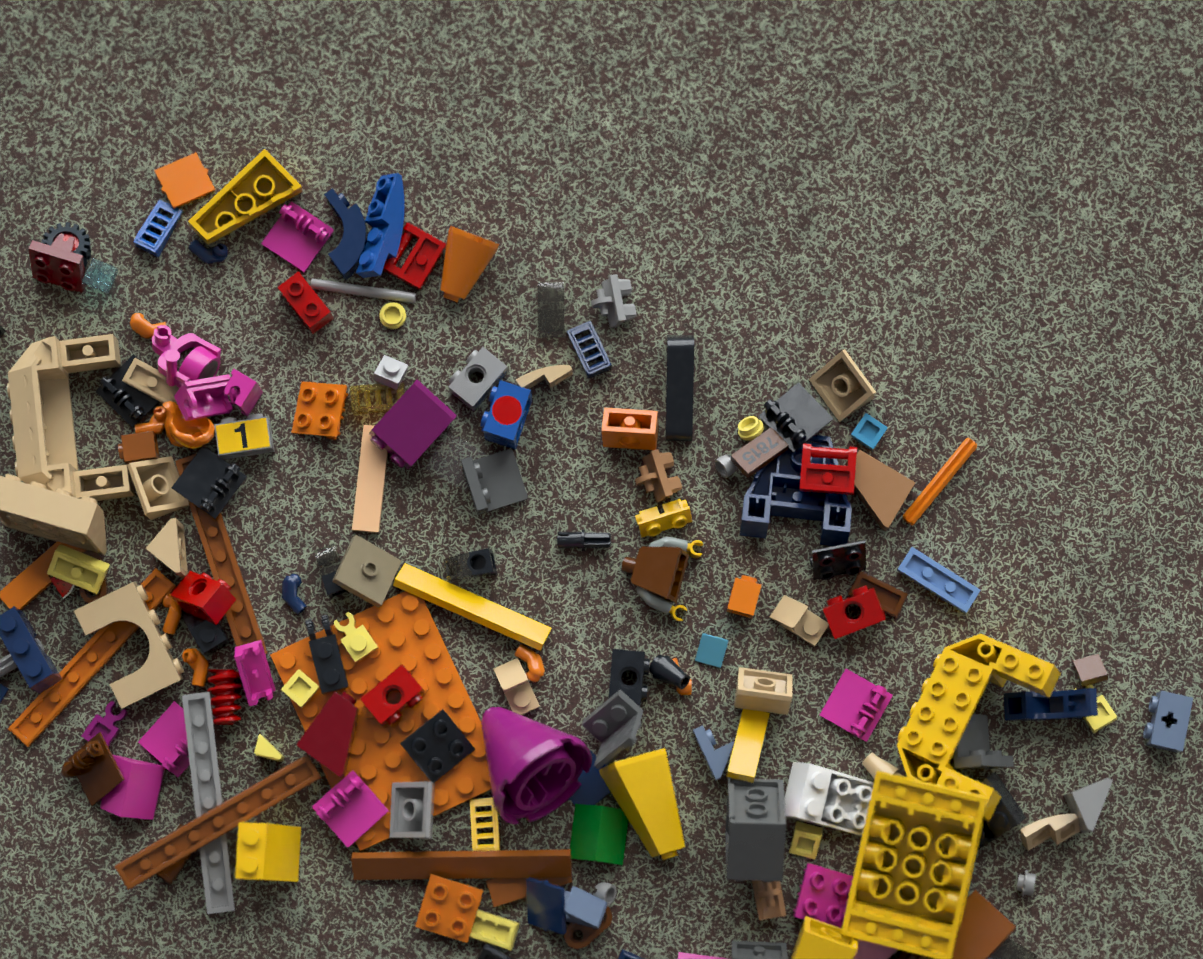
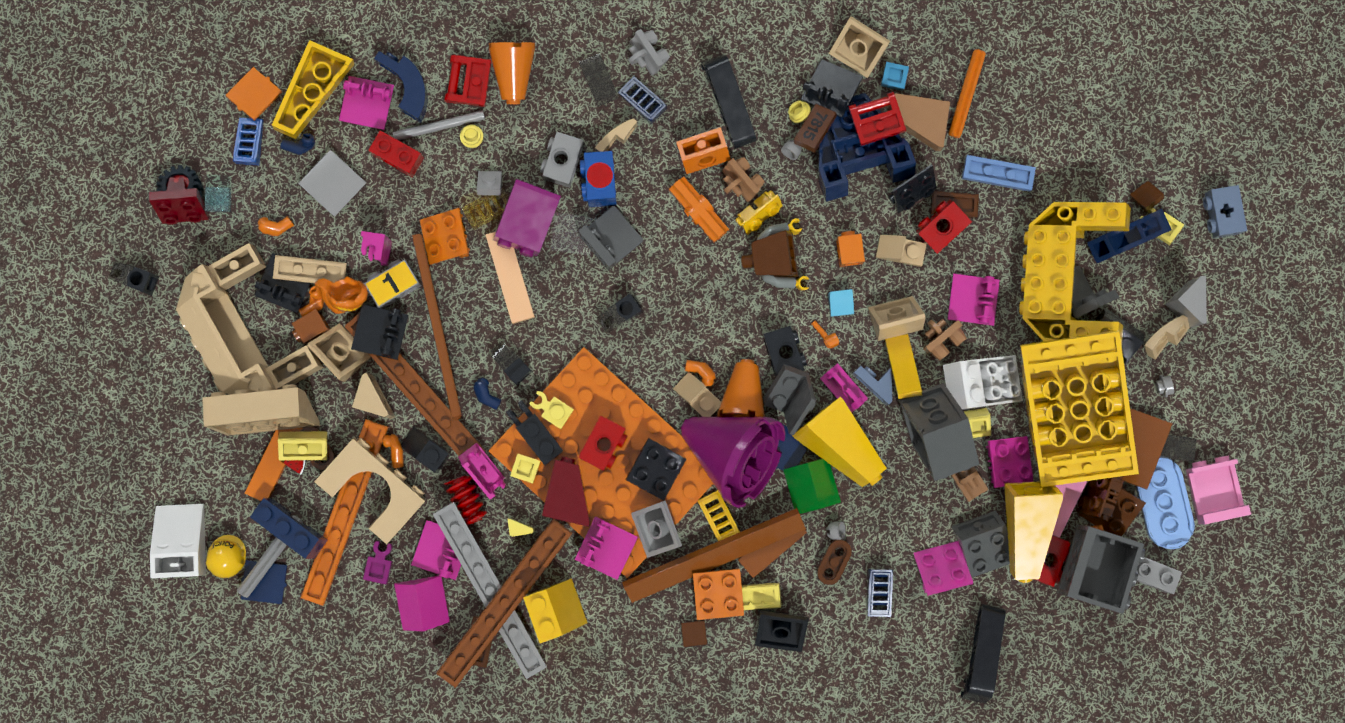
camera: 30 degrees left, 5 degrees up
(94, 769) = (385, 601): reddish brown hinge -> none
(198, 663) = (433, 482): orange arm -> none
(199, 363) = (330, 242): dark pink piece -> none
(203, 596) = (415, 426): red brick -> none
(204, 397) = (347, 264): dark pink hinge -> none
(226, 306) = (332, 183): none -> light grey slope
(270, 502) = (436, 327): none -> dark orange tile
(366, 571) = (538, 352): dark tan plate -> none
(387, 220) = (434, 60): blue slope -> none
(406, 940) = (694, 633): none -> reddish brown tile
(472, 606) = (635, 346): yellow tile -> none
(546, 905) = (795, 560): dark blue piece -> none
(566, 702) = (743, 392): none -> orange cone
(583, 540) = (702, 256): black axle -> none
(584, 908) = (820, 551): sand blue slope -> none
(600, 489) = (699, 209): none -> orange piece
(667, 671) = (815, 334): black cone -> none
(676, 743) = (842, 386): none -> dark pink hinge
(794, 738) = (936, 346): none -> medium nougat hips
(874, 764) = (1012, 342): tan cone -> none

